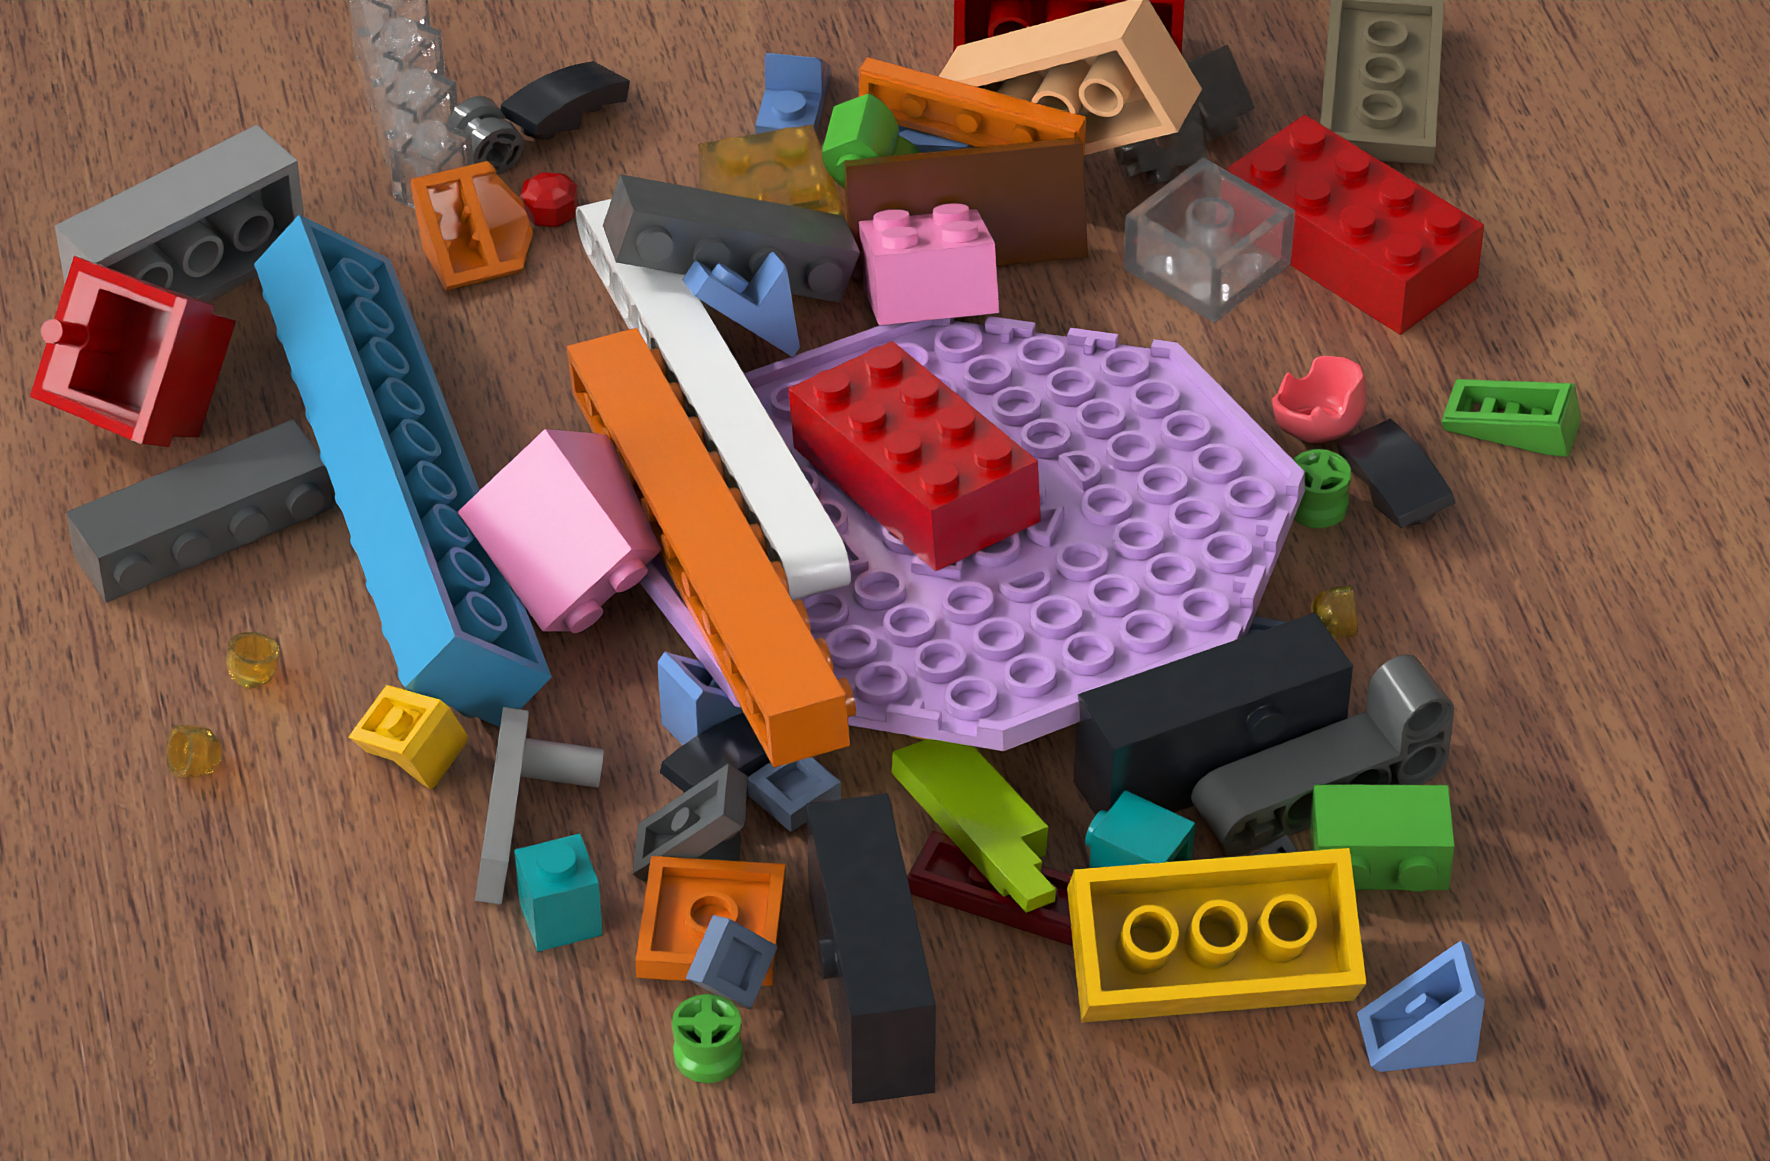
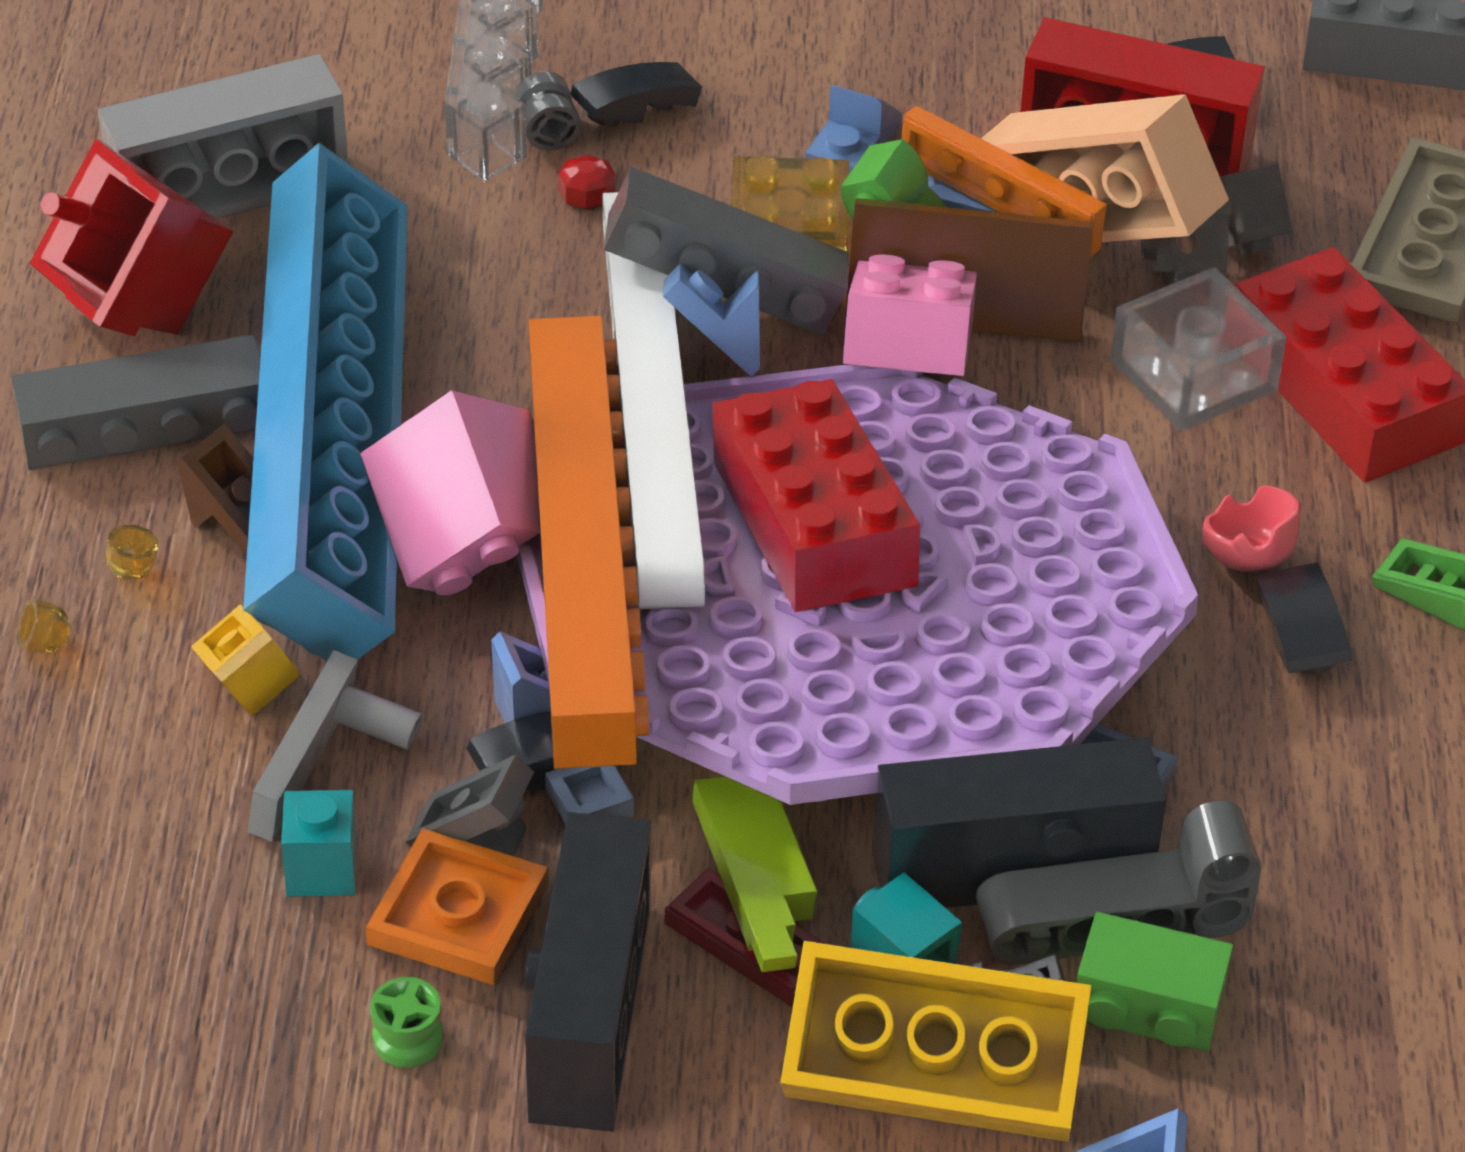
camera: 15 degrees right, 0 degrees up
(326, 571) = (219, 483): none -> reddish brown slope
(471, 225) = (502, 190): orange slope -> none
(731, 961) = (449, 952): sand blue plate -> none
(1325, 488) = (1222, 616): bright green wheel -> none
(1337, 611) = (1191, 742): clear yellow hinge -> none

